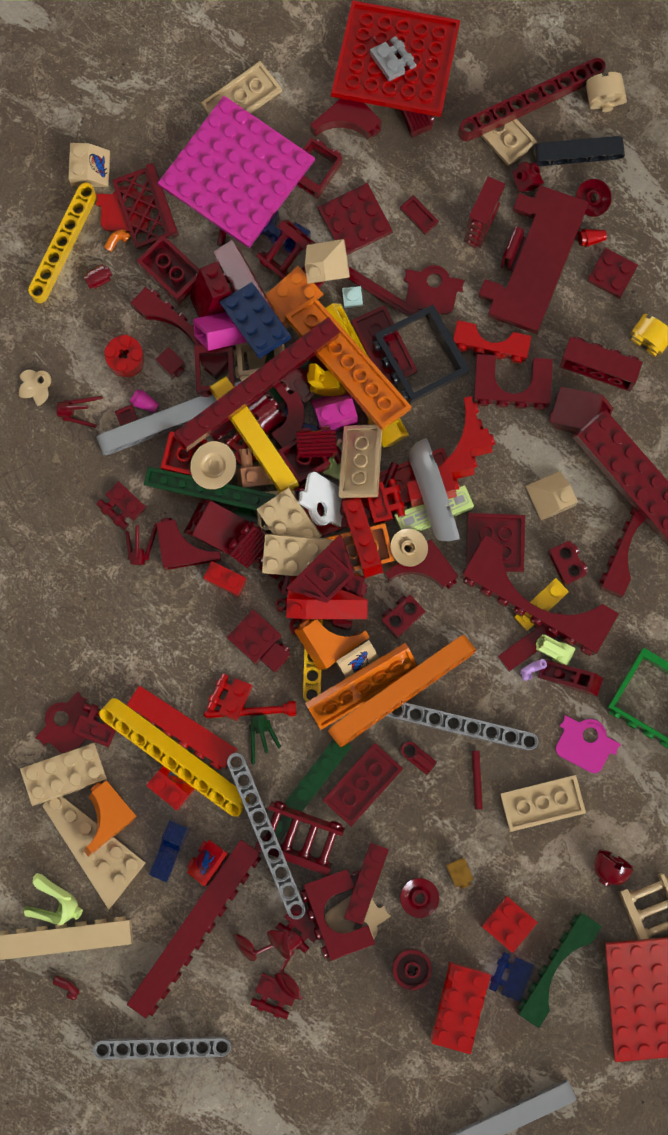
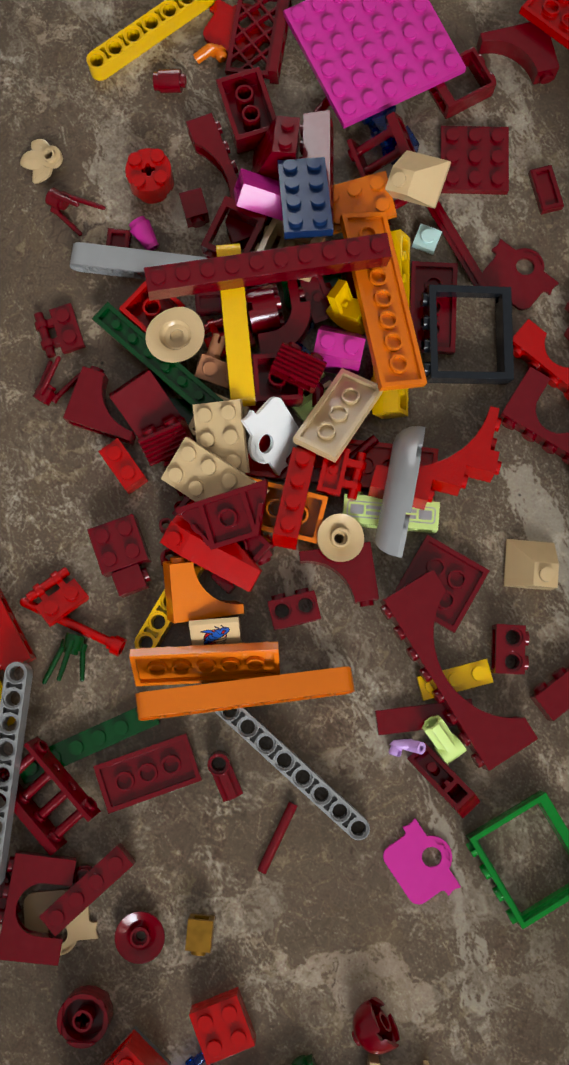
camera: 30 degrees right, 0 degrees up
(542, 803) = (336, 906): tan plate -> none

